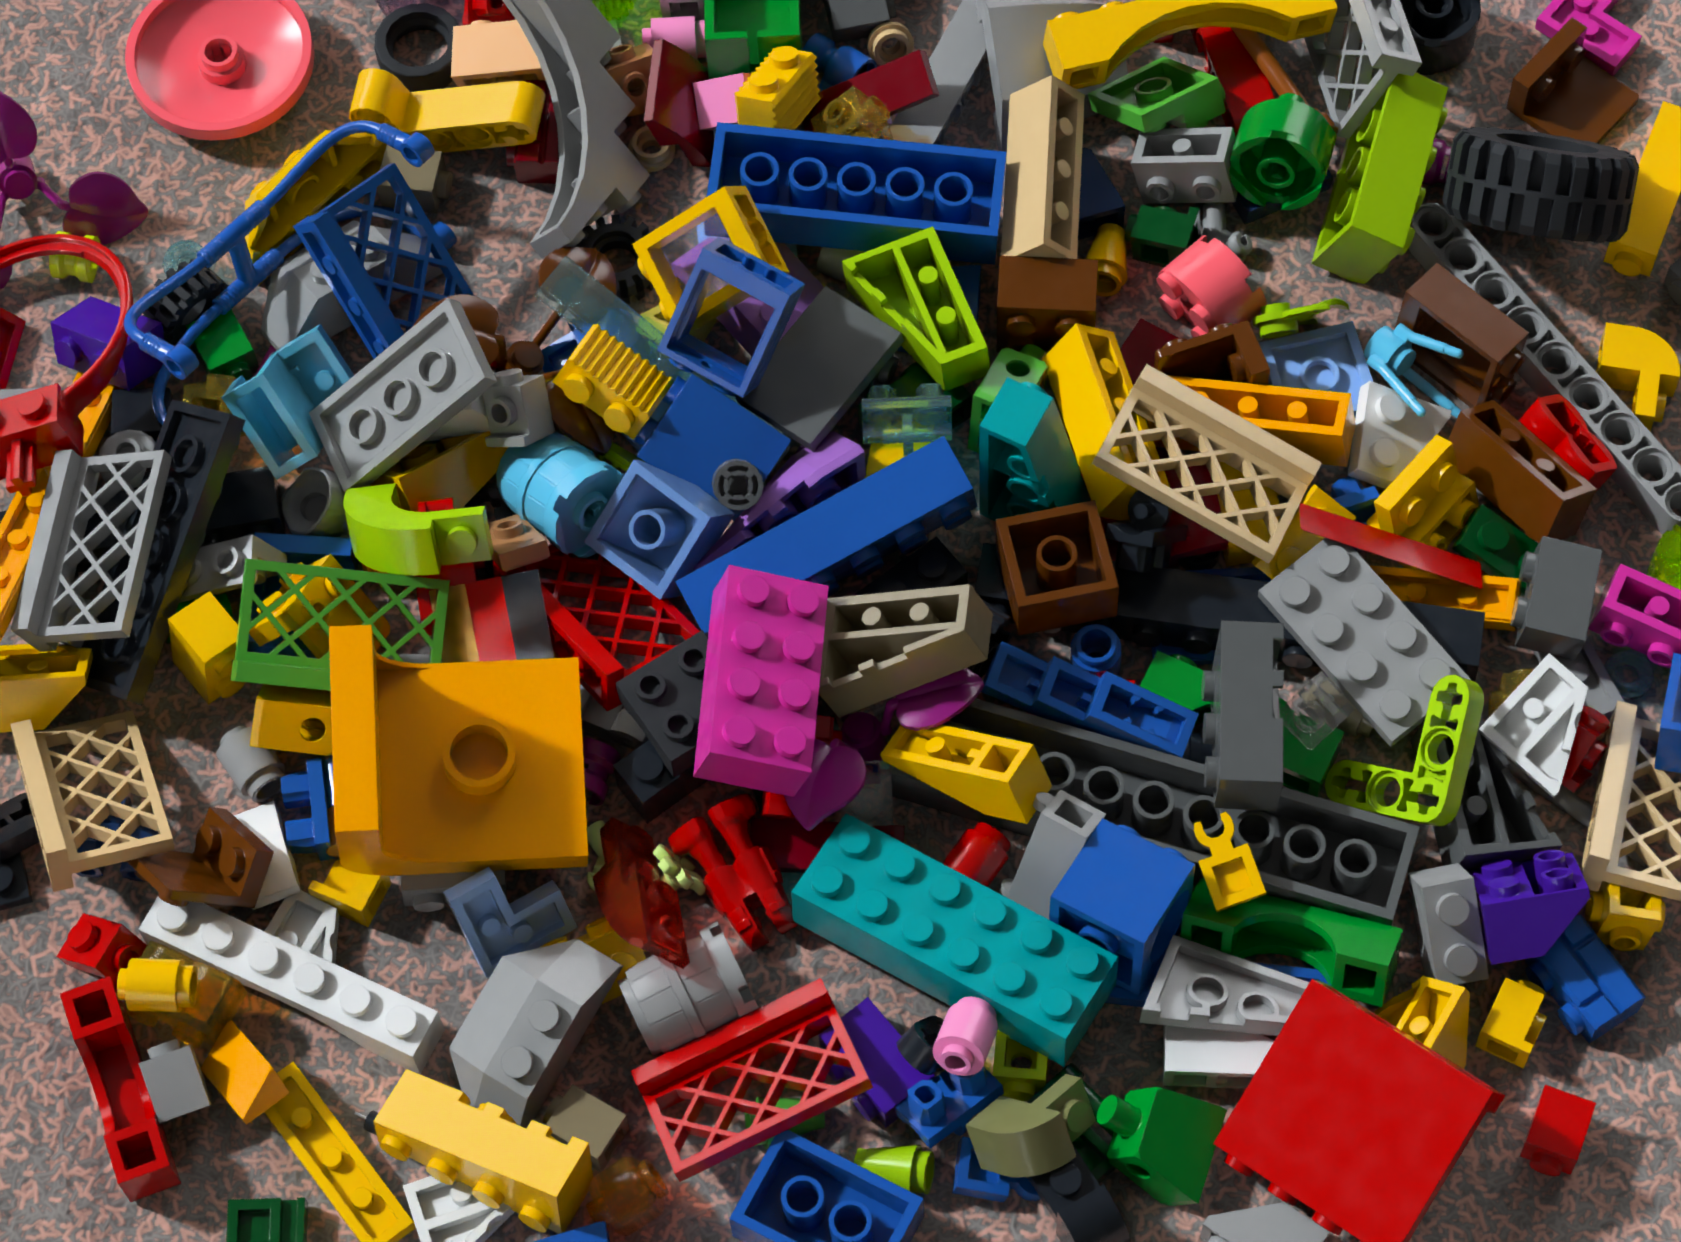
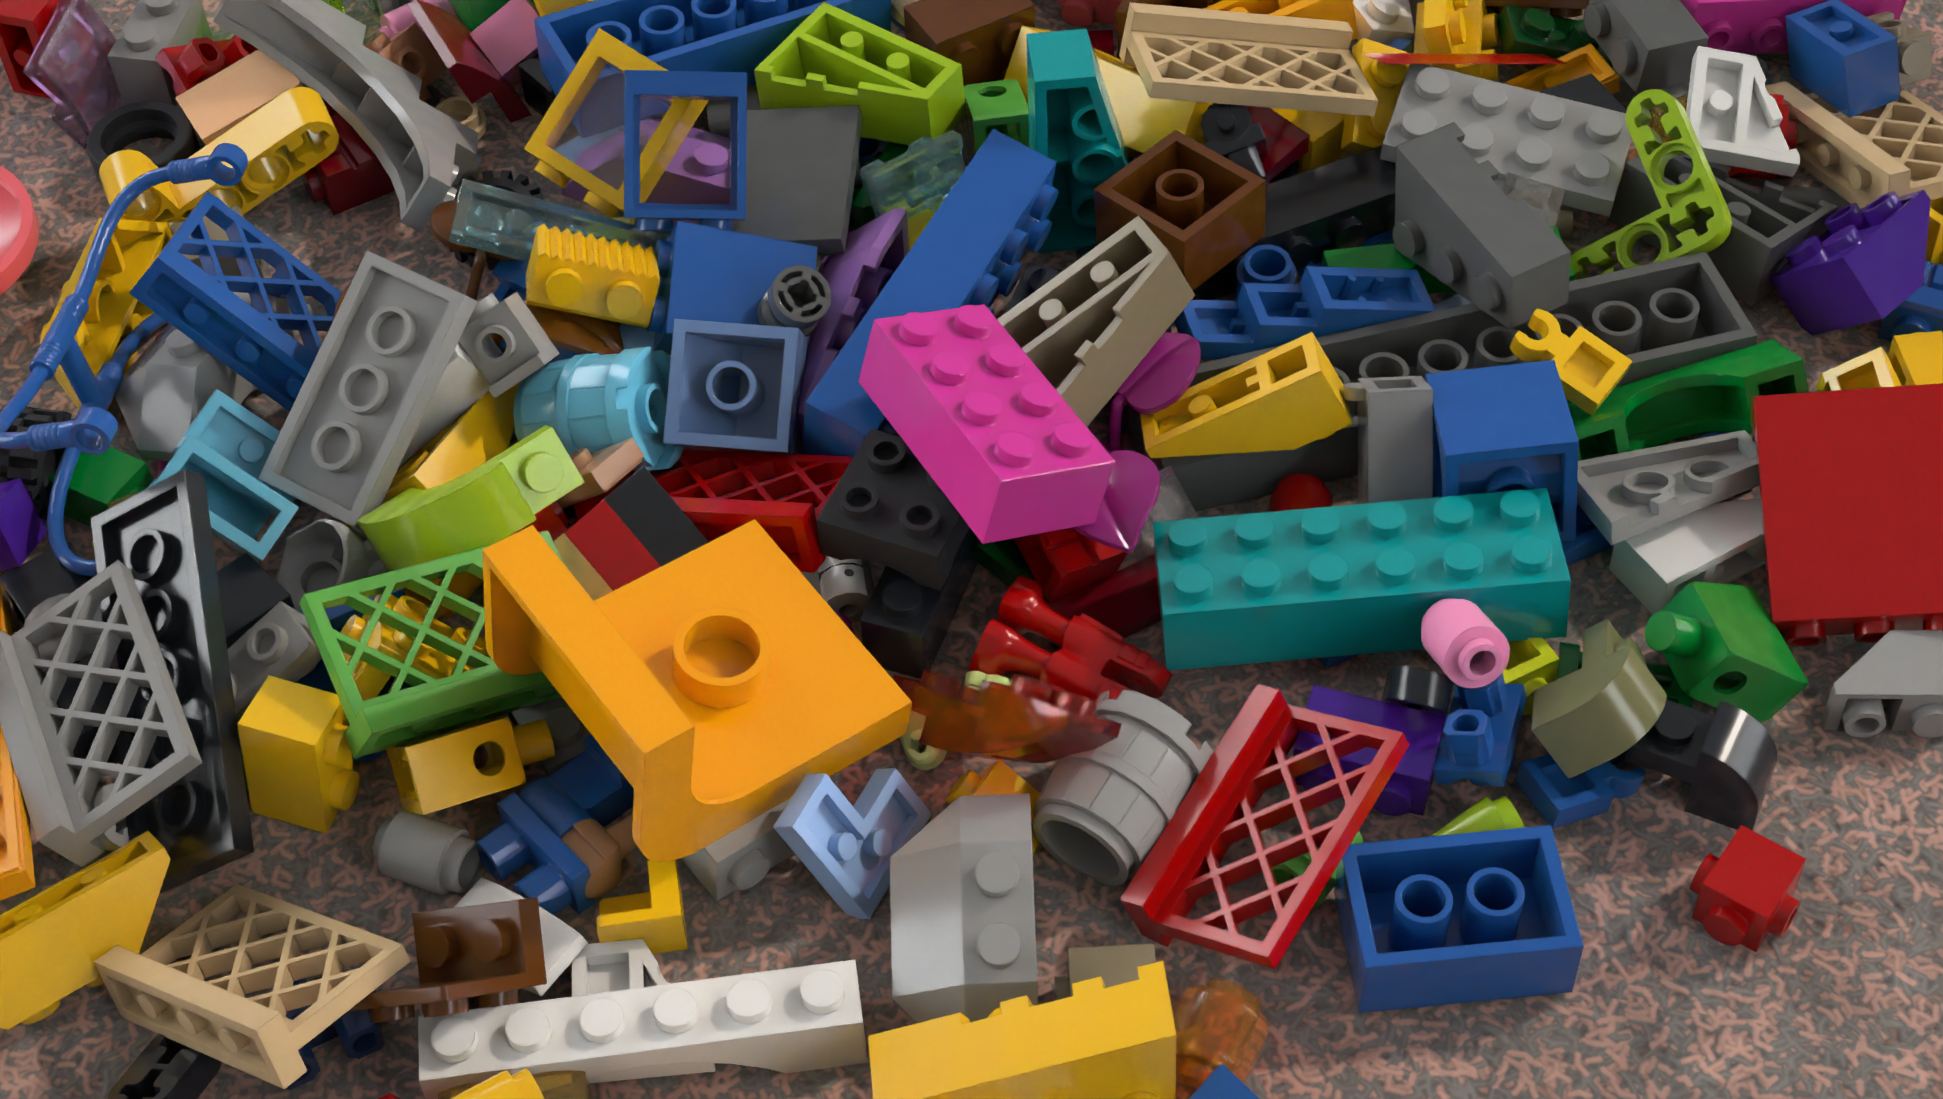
camera: 35 degrees left, 15 degrees down
(1448, 924) = (1805, 312): light grey brick -> none

